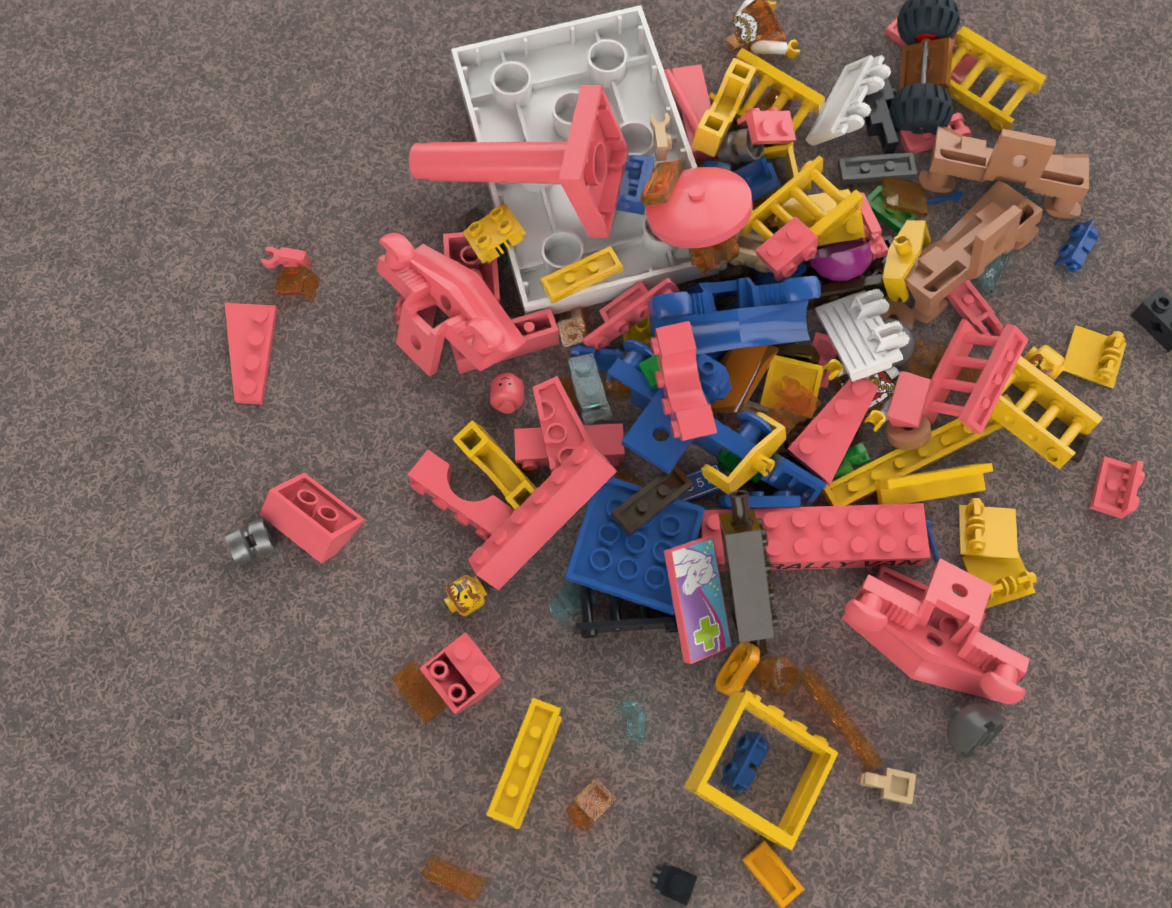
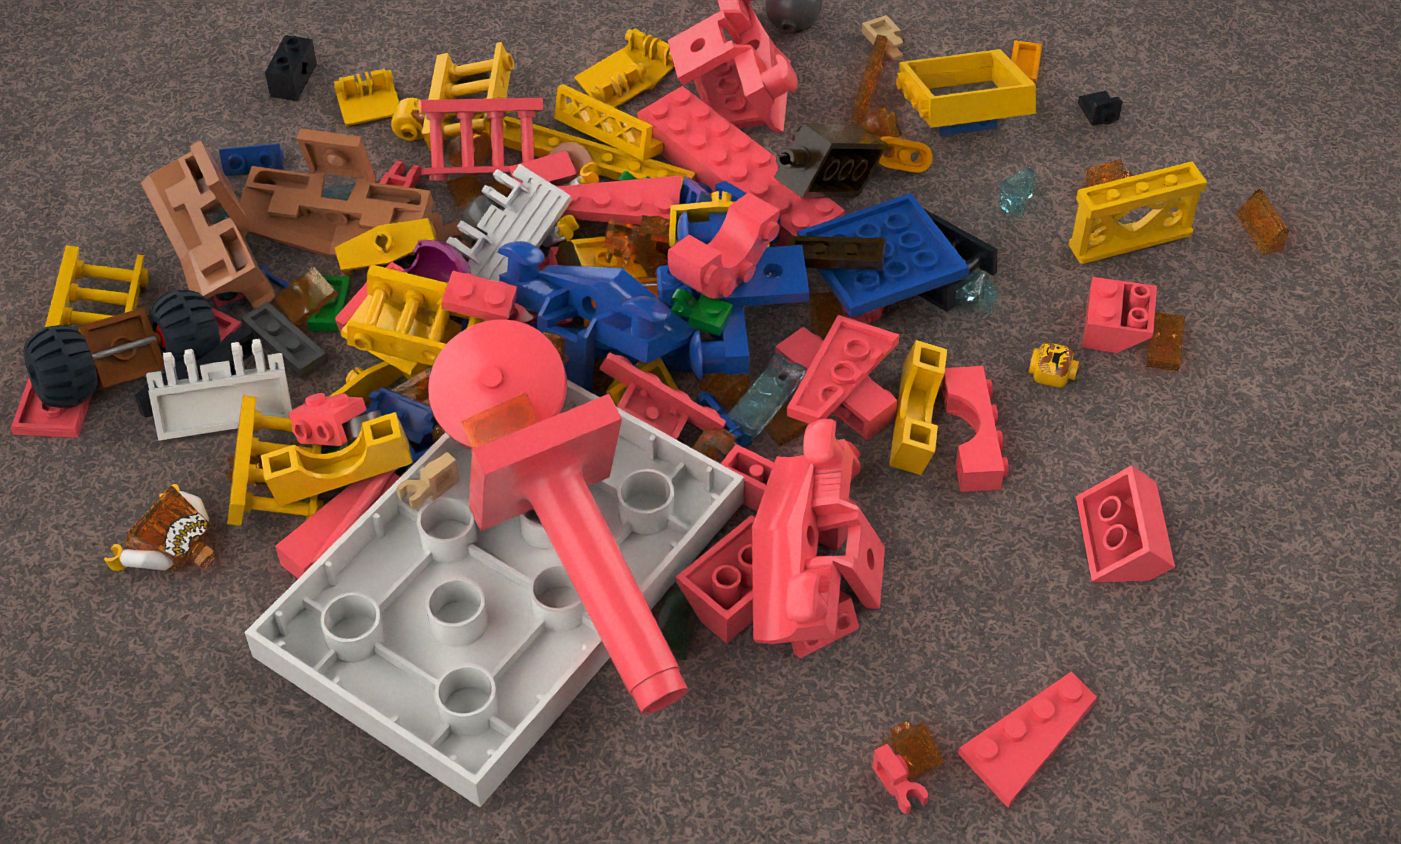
camera: 130 degrees left, 20 degrees down
(241, 545) = (1205, 555): flat silver wheel -> none
(493, 231) = (688, 552): yellow hinge -> none
(541, 515) = (932, 326): coral brick -> none
(581, 274) = (665, 451): yellow tile -> none
(698, 599) = (880, 191): tile -> none
(1117, 487) = (490, 25): coral bracket -> none

